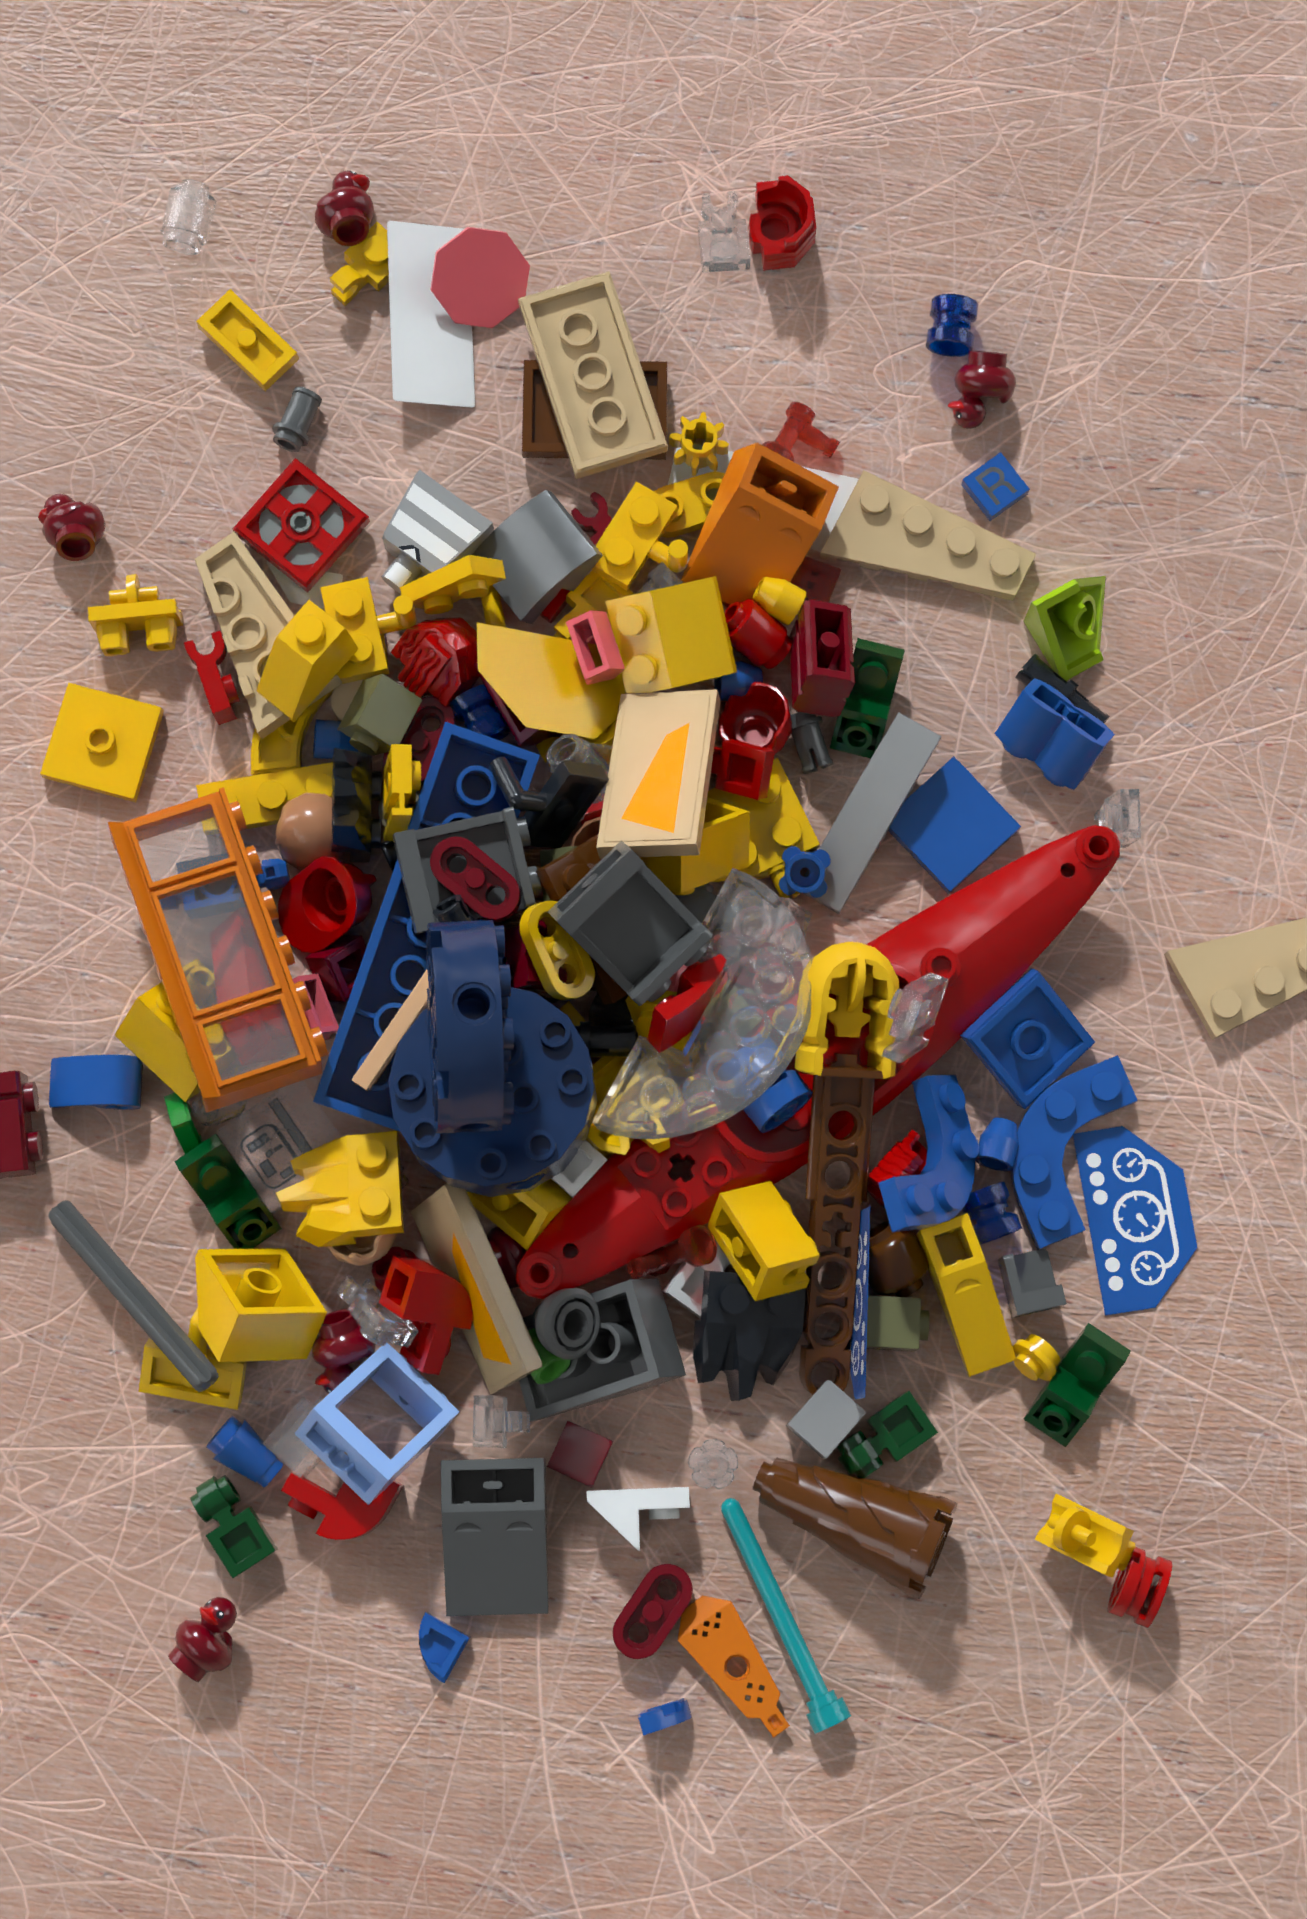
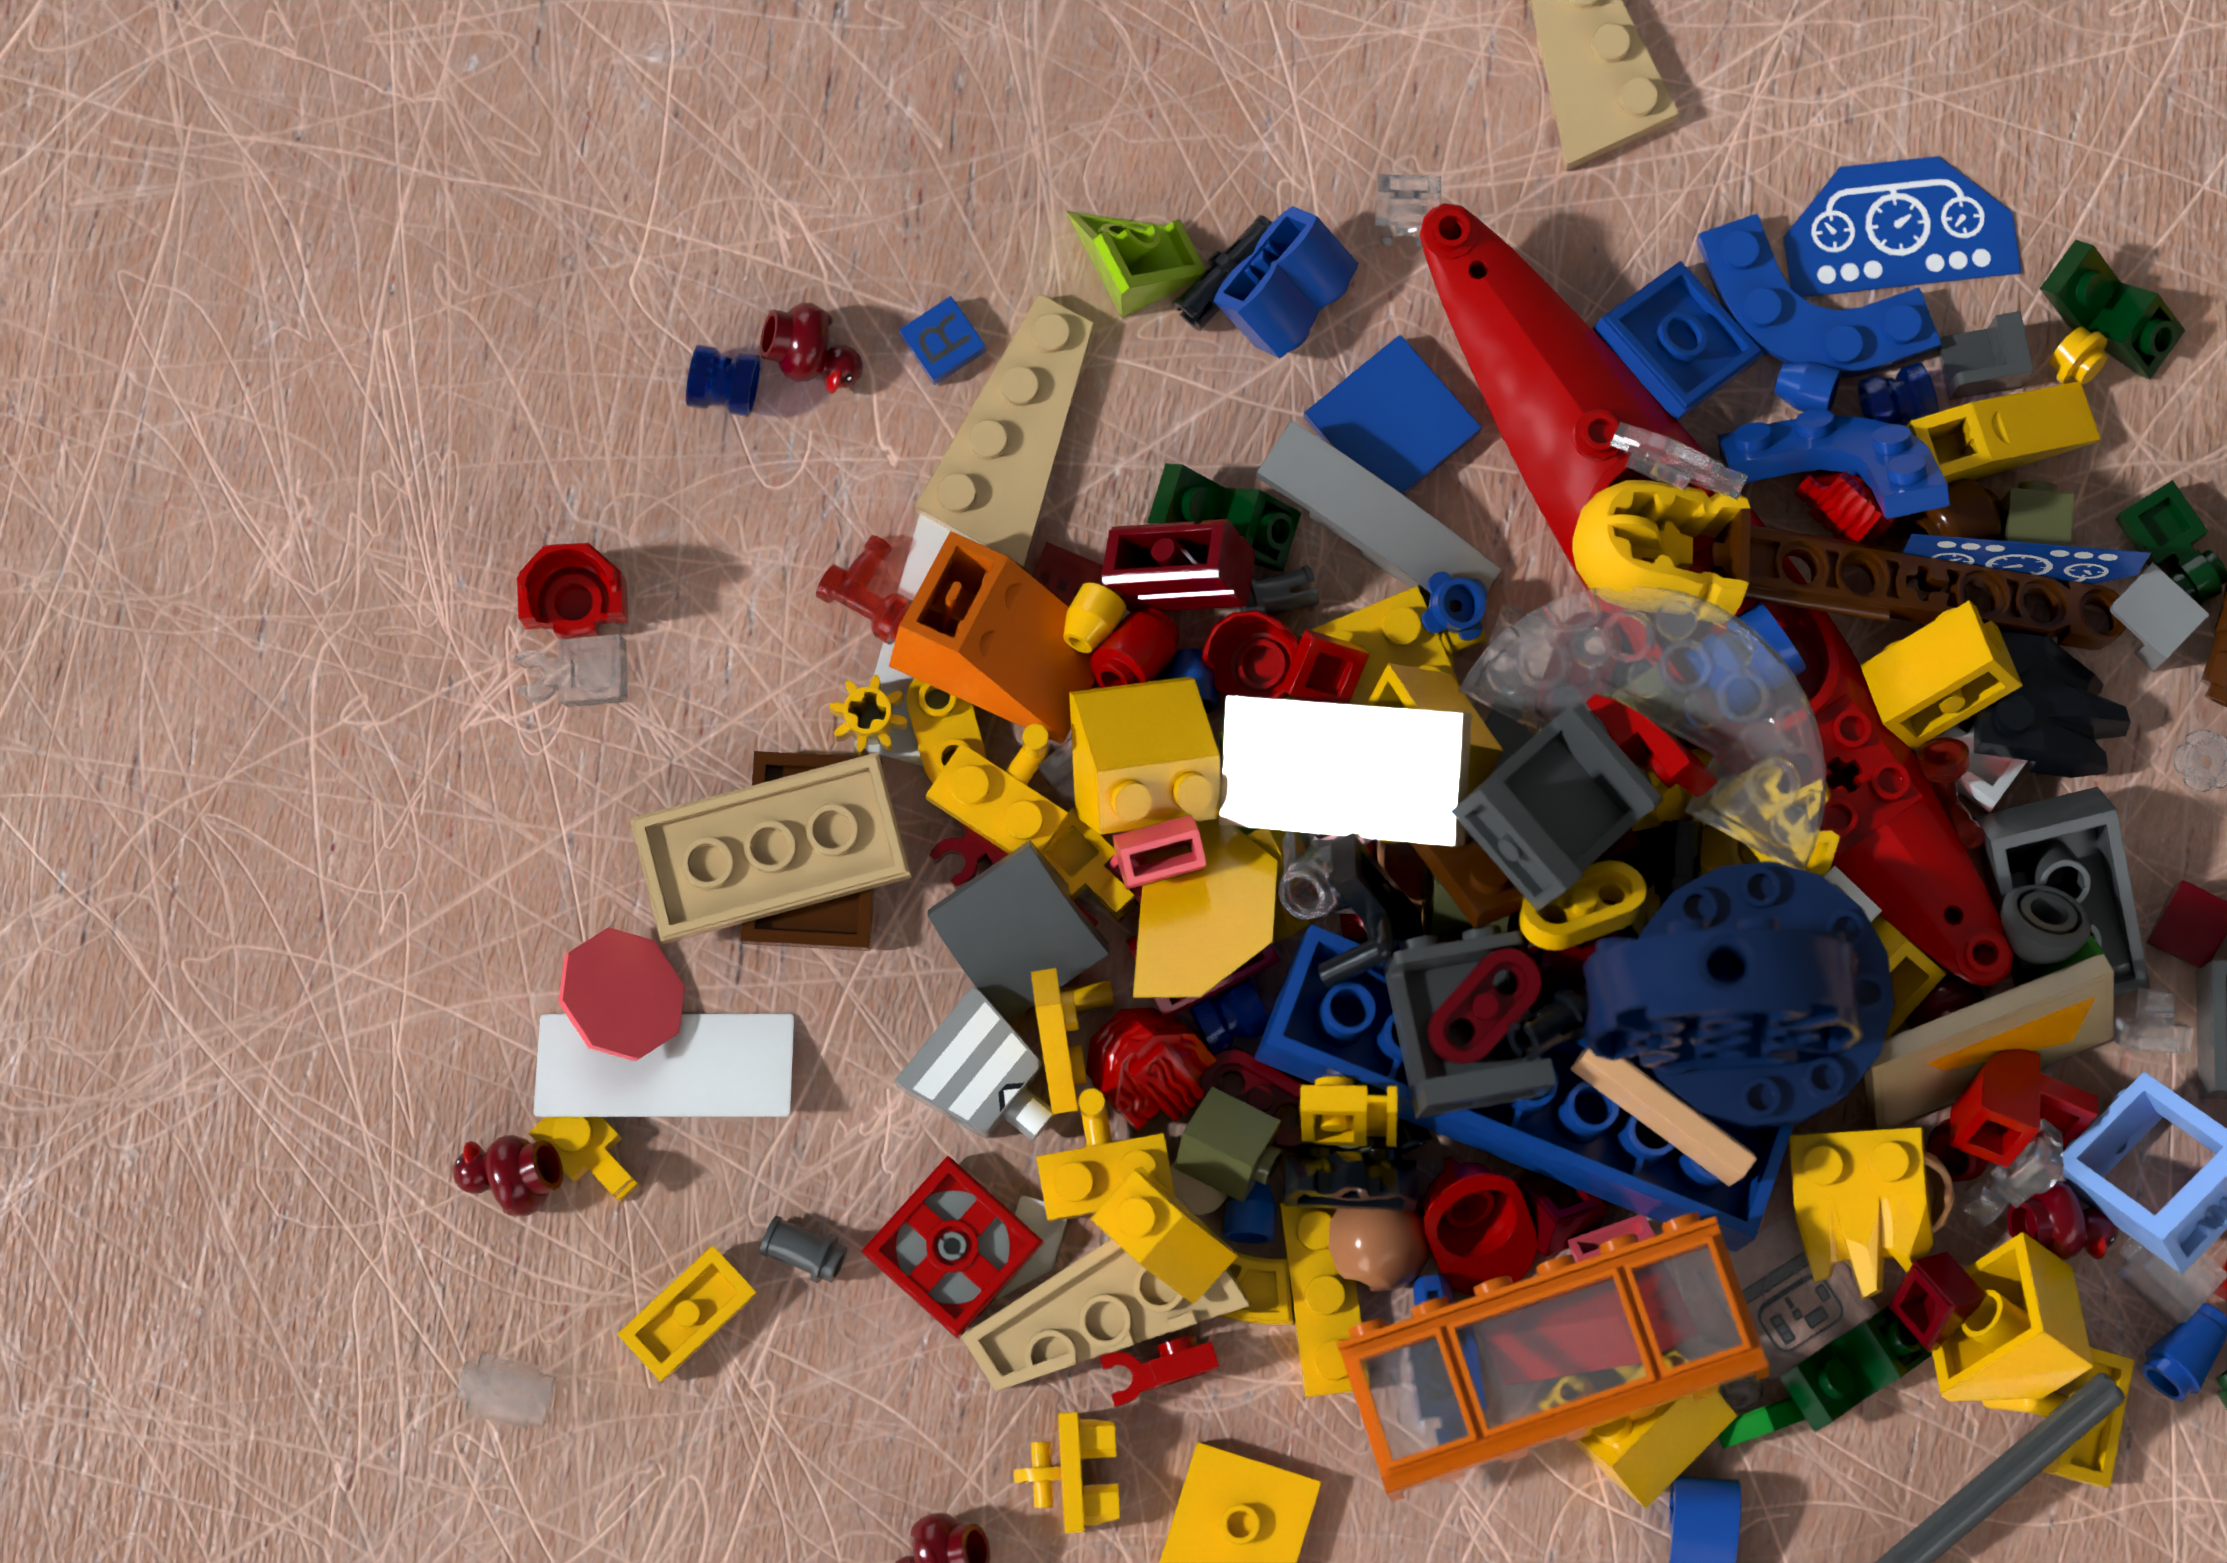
camera: 85 degrees left, 0 degrees up
(276, 1249) = (1936, 1299): none -> dark red slope

